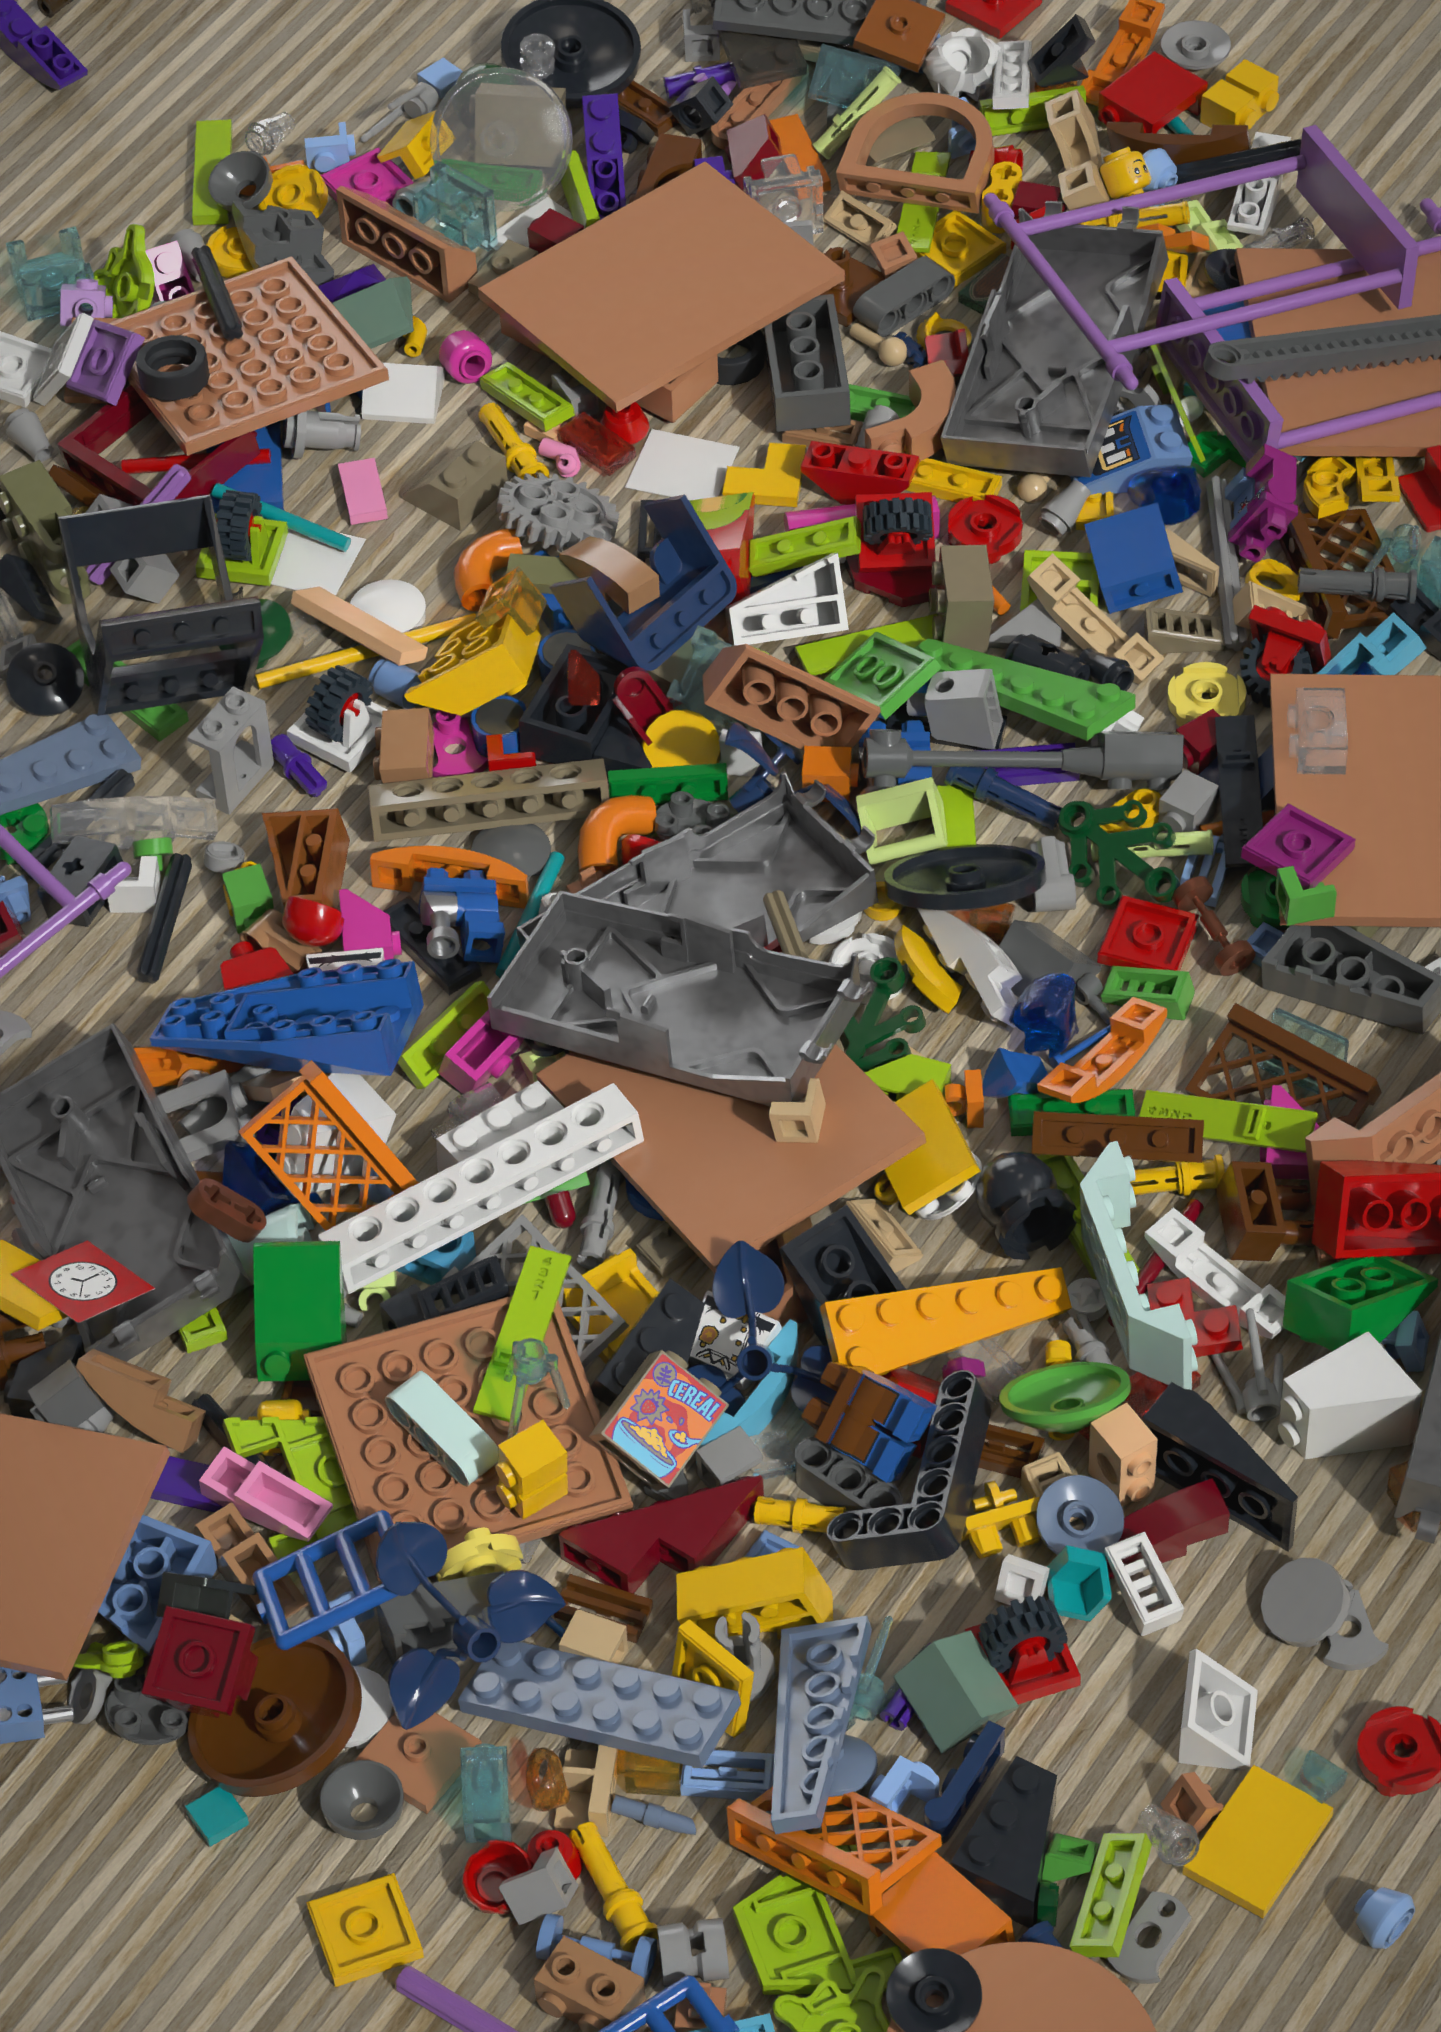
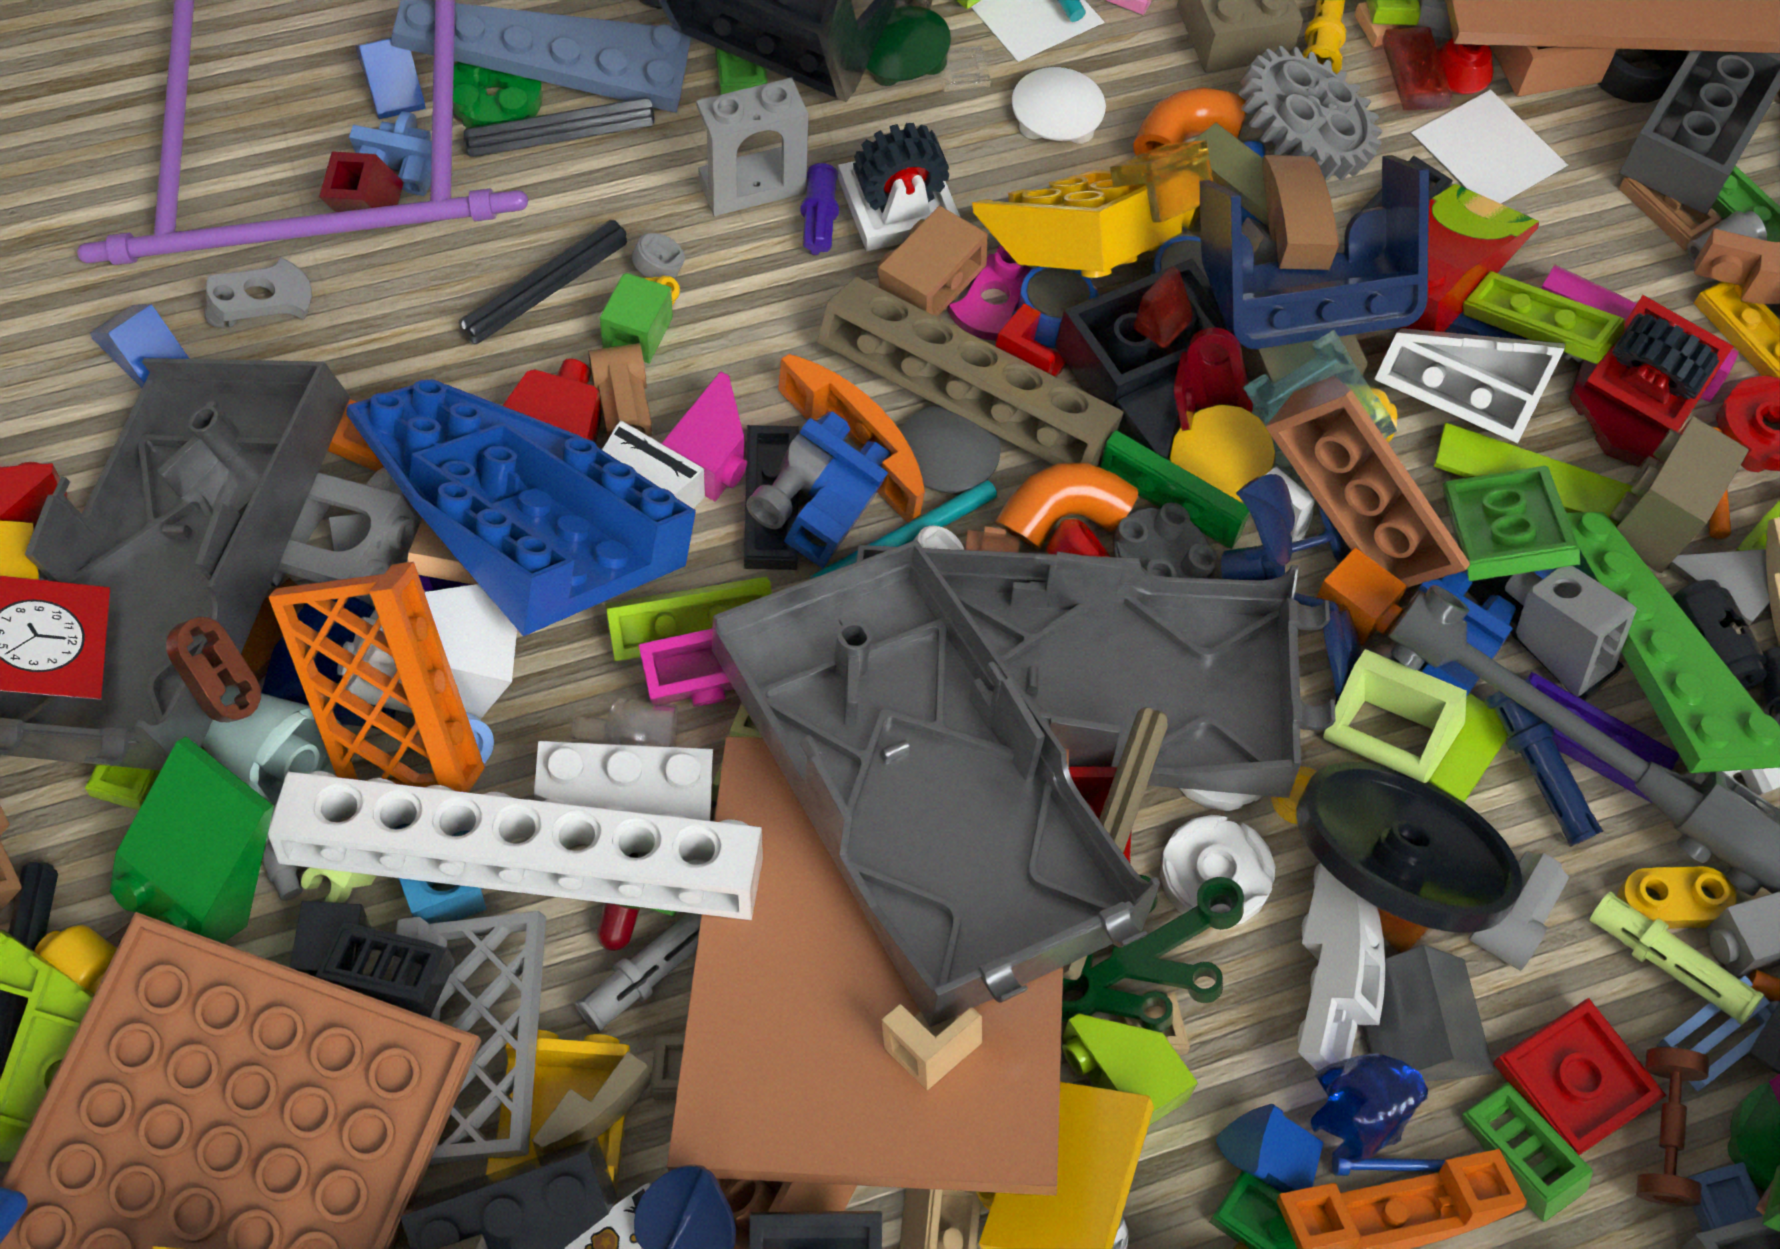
camera: 30 degrees right, 10 degrees up
(75, 868) = (504, 169): black brick -> none
(134, 819) = (605, 157): clear slope -> none
(140, 892) = (544, 232): white panel -> none
(153, 847) = (595, 203): bright green tile -> none
(308, 853) = (720, 323): dark orange wedge -> none
(311, 922) = (648, 390): red hair -> none
(355, 654) = (987, 131): yellow piece -> none
(359, 626) = (1006, 104): light nougat tile -> none
(393, 681) = (991, 177): medium blue brick -> none
(443, 1428) = (177, 1141): light aqua beam -> none
(526, 1318) = (384, 1079): lime piece -> none
(530, 1365) = (302, 1157): clear light blue plant -> none
(565, 456) = (1374, 61): bright pink arm -> none
(641, 1290) = (580, 1120): none -> dark tan slope
(777, 483) = (1576, 228): yellow tile -> none
(857, 471) = (1672, 270): red slope -> none
(926, 969) = (1277, 915): yellow tile -> none
(967, 1098) = (1188, 1138): orange tile -> none
(1086, 993) = (1447, 1095): dark grey hand -> none
(1114, 848) = (1624, 930): dark green plant -> none

